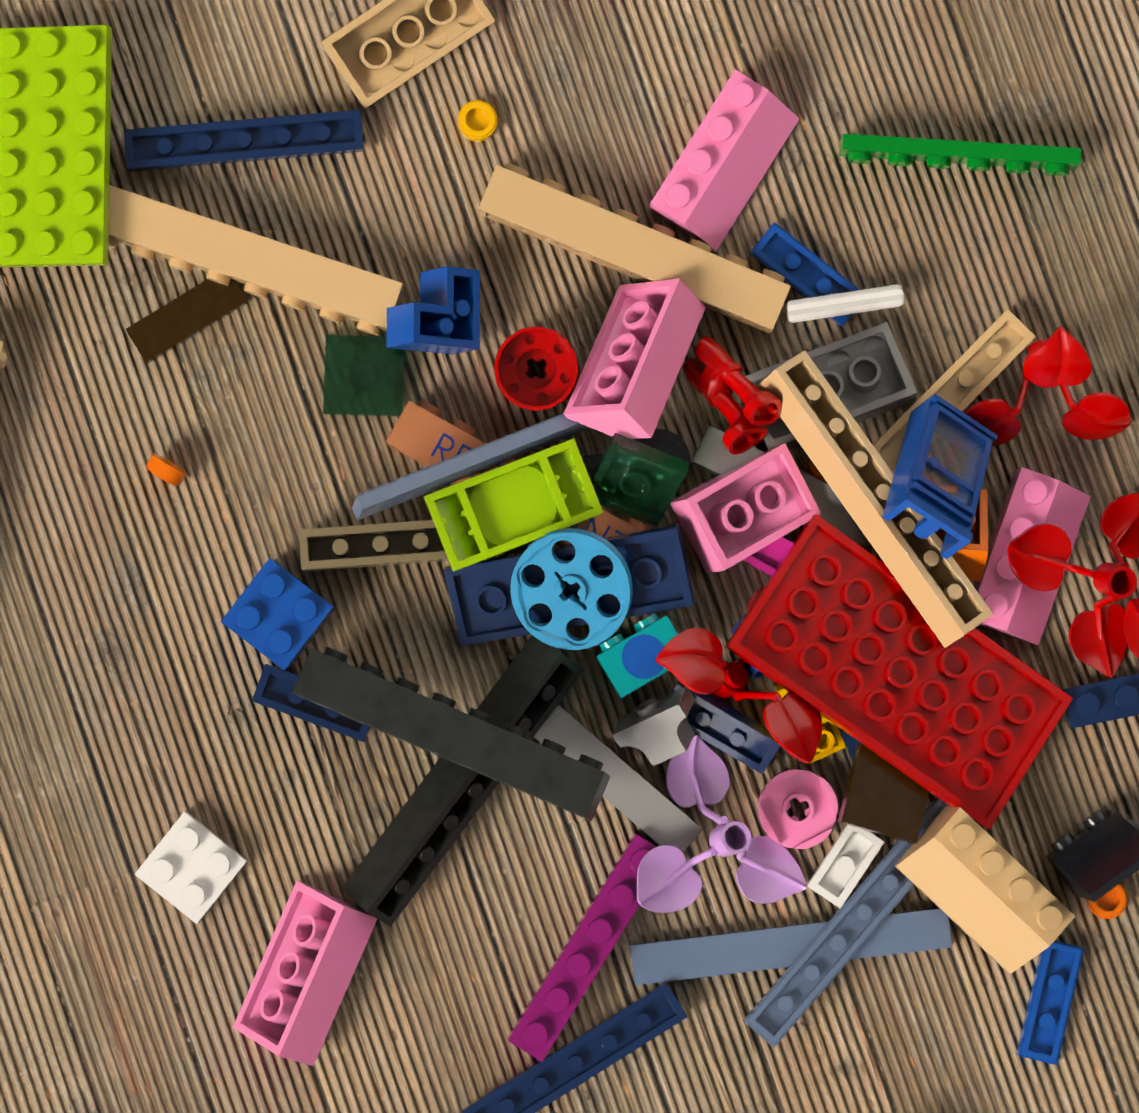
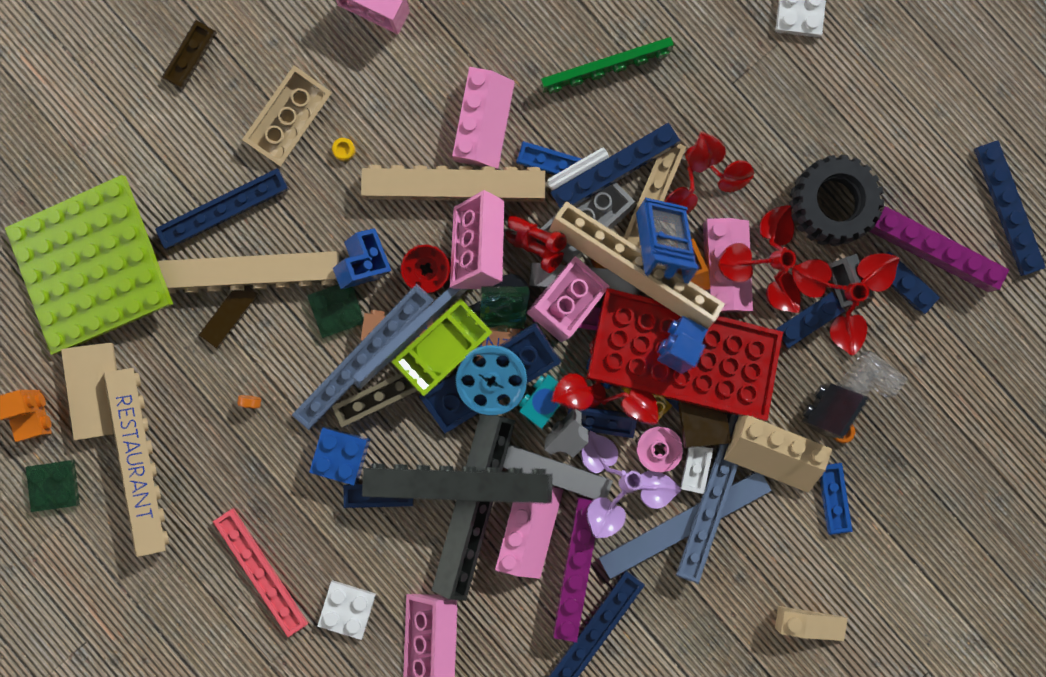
camera: 15 degrees left, 0 degrees up
(75, 752) = (260, 572): none -> coral tile
(341, 485) = (343, 376): none -> sand blue tile
(531, 863) = (528, 537): none -> bright pink slope
(899, 654) = (683, 345): none -> blue brick
(909, 324) = (616, 166): none -> dark blue plate

